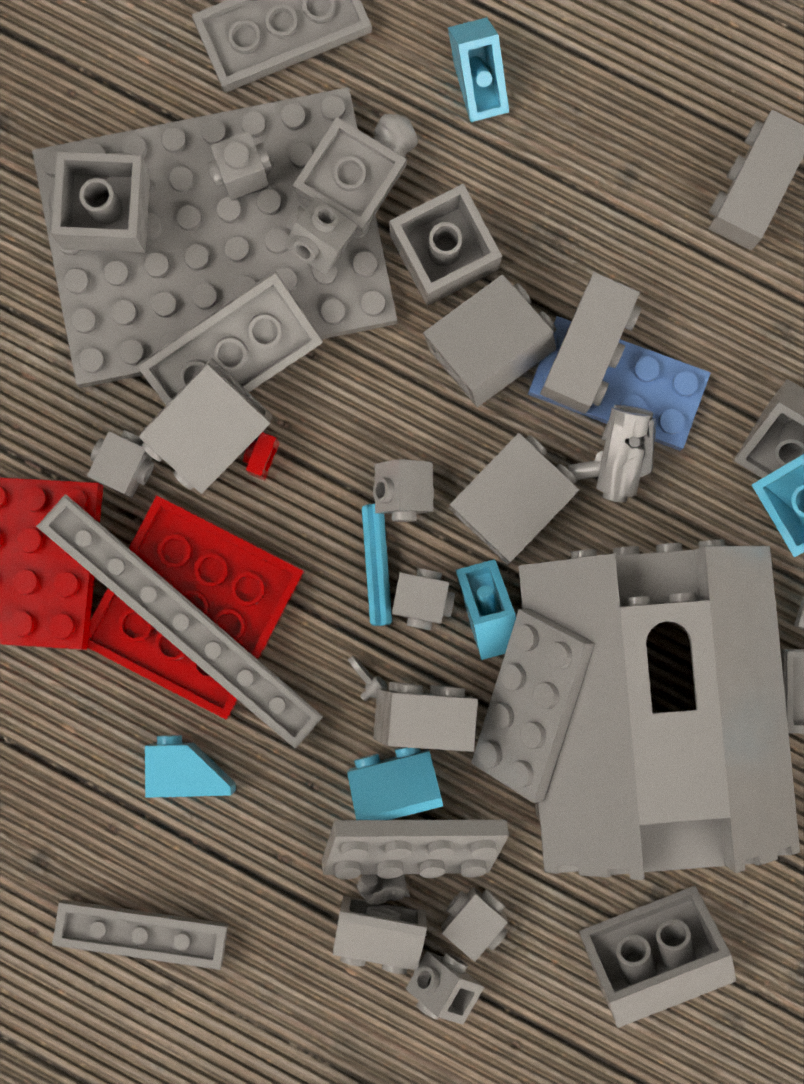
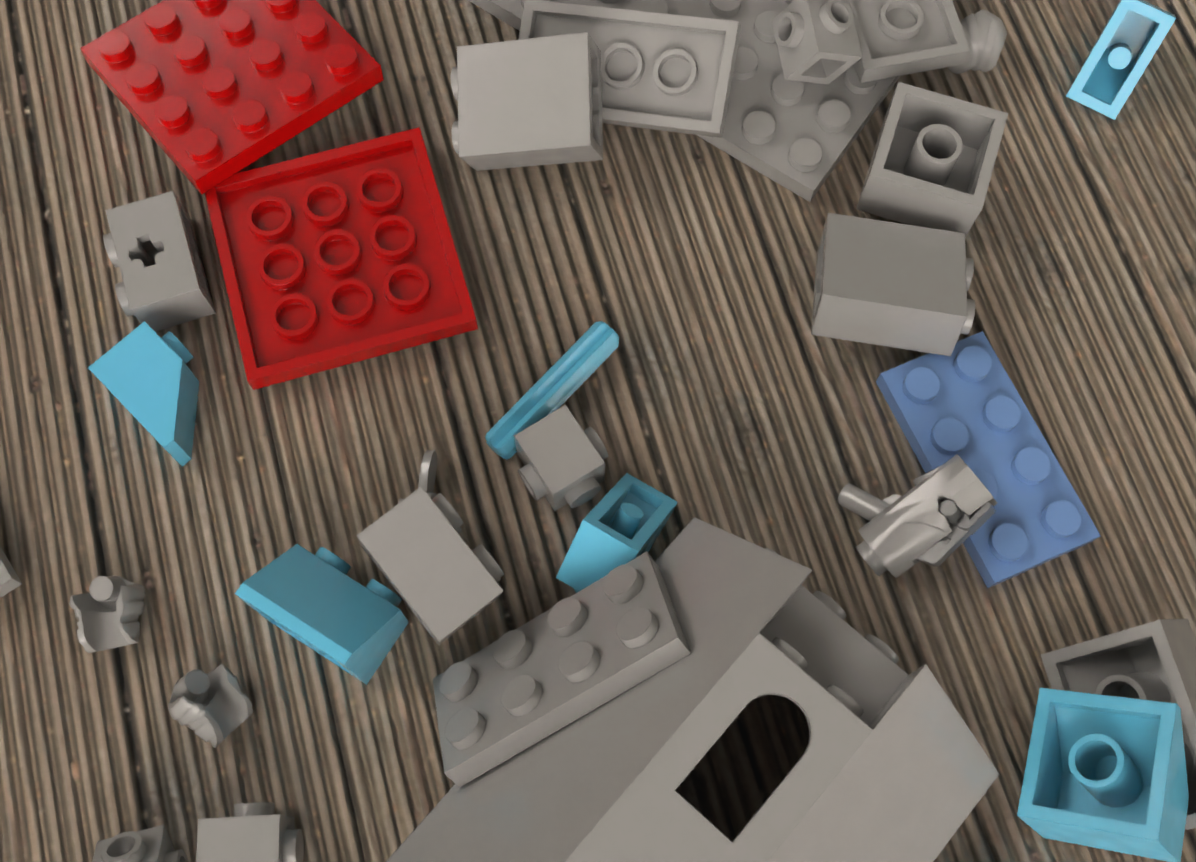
camera: 45 degrees right, 15 degrees down
(120, 463) = (418, 74): light grey brick -> none
(130, 707) = (157, 262): none -> light grey brick
(179, 621) = (309, 256): light grey tile -> none
(260, 455) = (553, 185): red plate -> none
(289, 892) = (108, 613): none -> light grey arm
(380, 935) = (138, 749): light grey slope -> none
(403, 488) = (656, 337): light grey brick -> none
(413, 847) = (271, 686): light grey plate -> none
(514, 497) = (761, 456): light grey brick -> none
(592, 344) = (995, 374): light grey brick -> none

